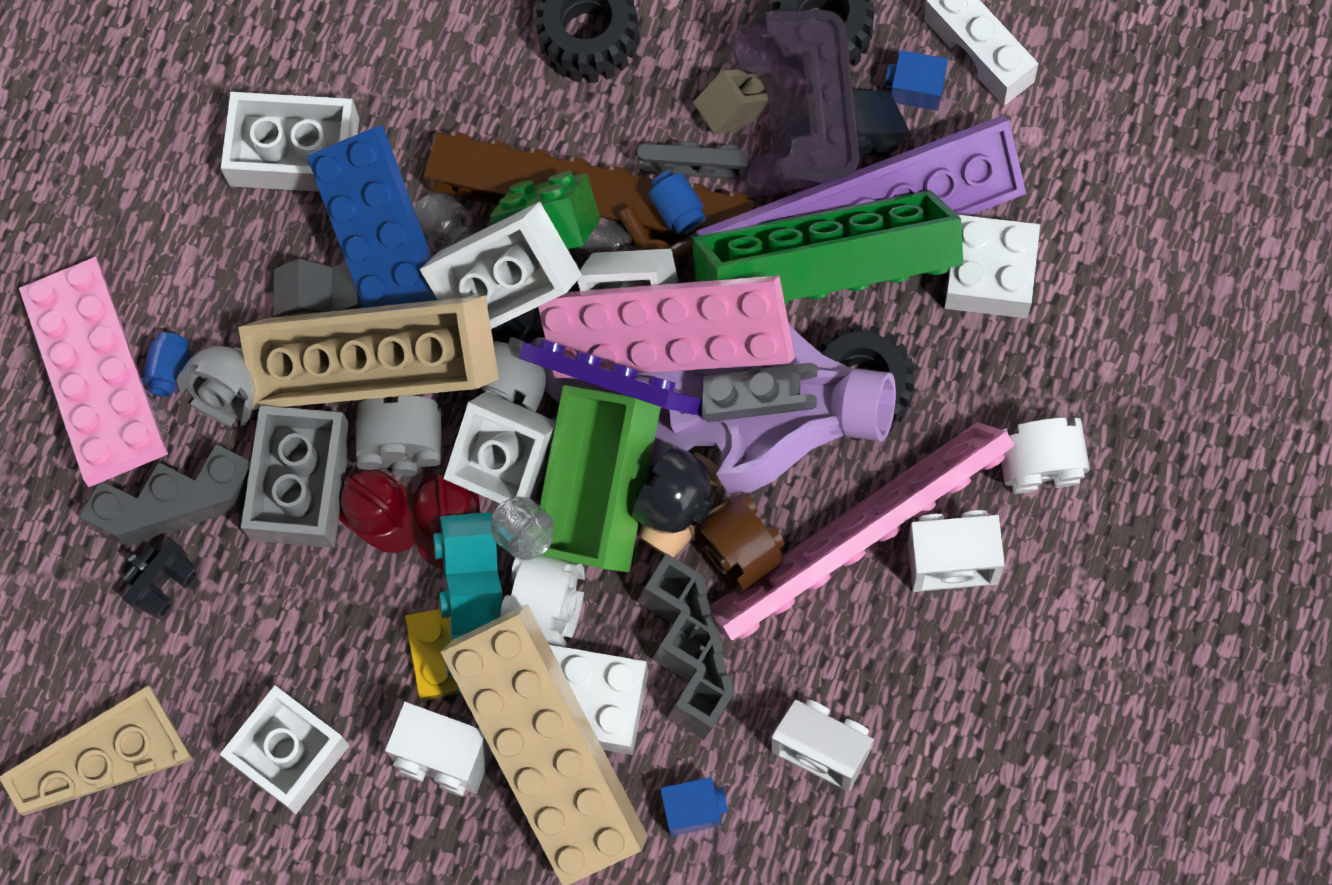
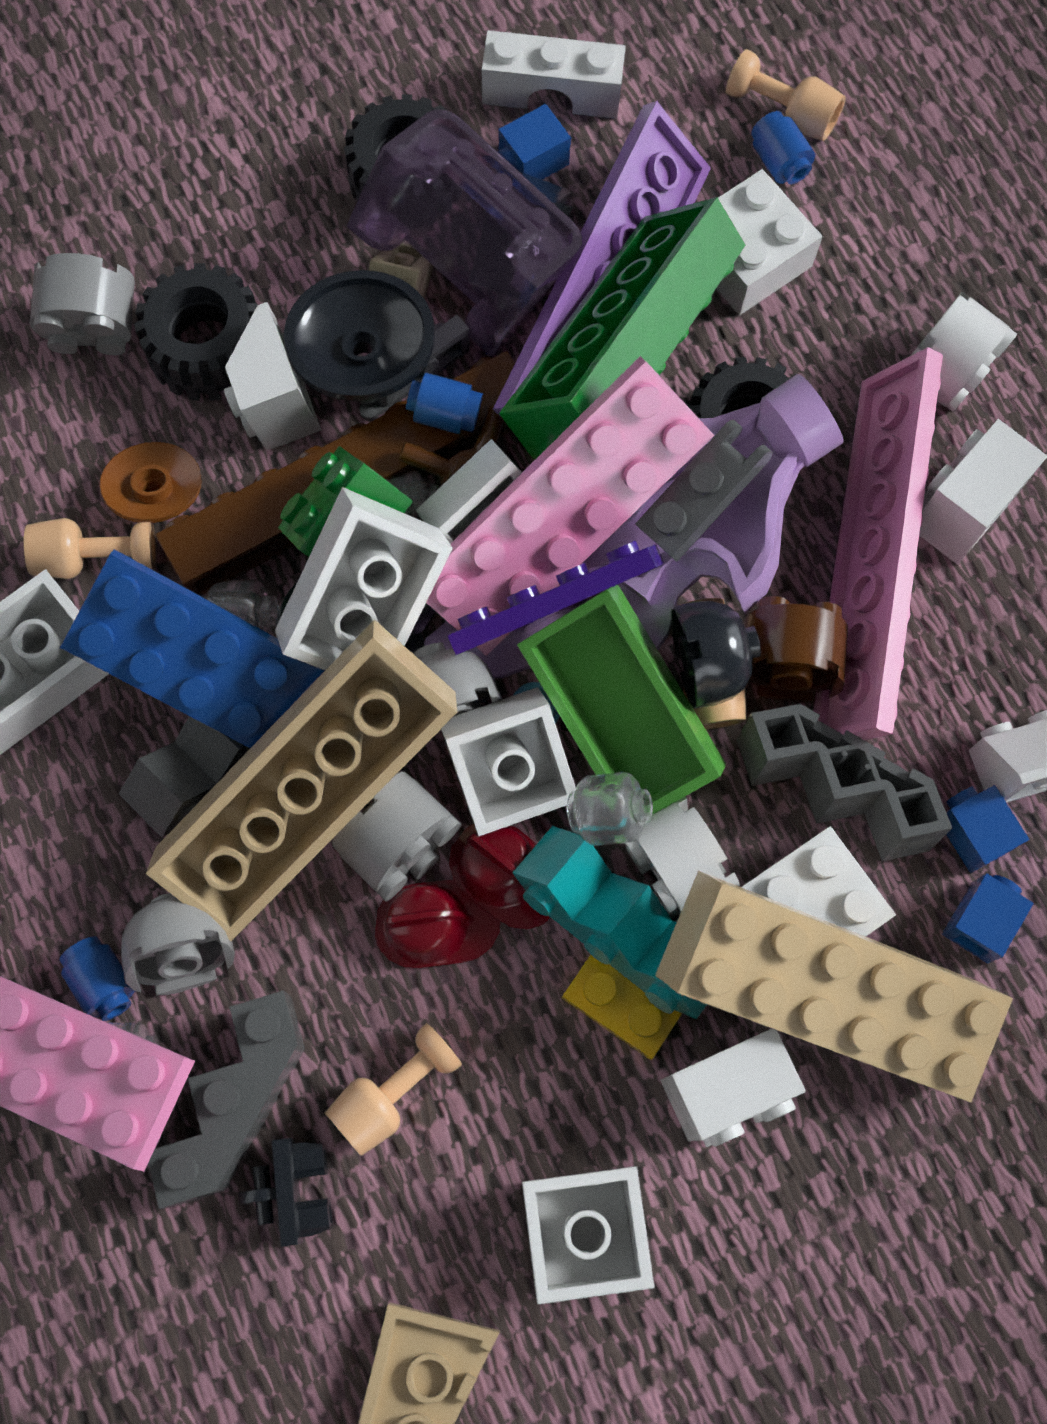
camera: 55 degrees left, 0 degrees up
(235, 575) = (367, 1111): none -> light nougat piece
(296, 476) = (334, 964): light grey brick -> none
(379, 90) = (62, 549): none -> light nougat piece
(472, 83) = (139, 470): none -> dark orange dish
(592, 96) = (265, 386): none -> white slope
(667, 93) = (356, 316): none -> black dish
(745, 753) = (982, 827): none -> blue brick
(1084, 222) = (782, 148): none -> blue brick
(1131, 209) = (811, 105): none -> light nougat piece

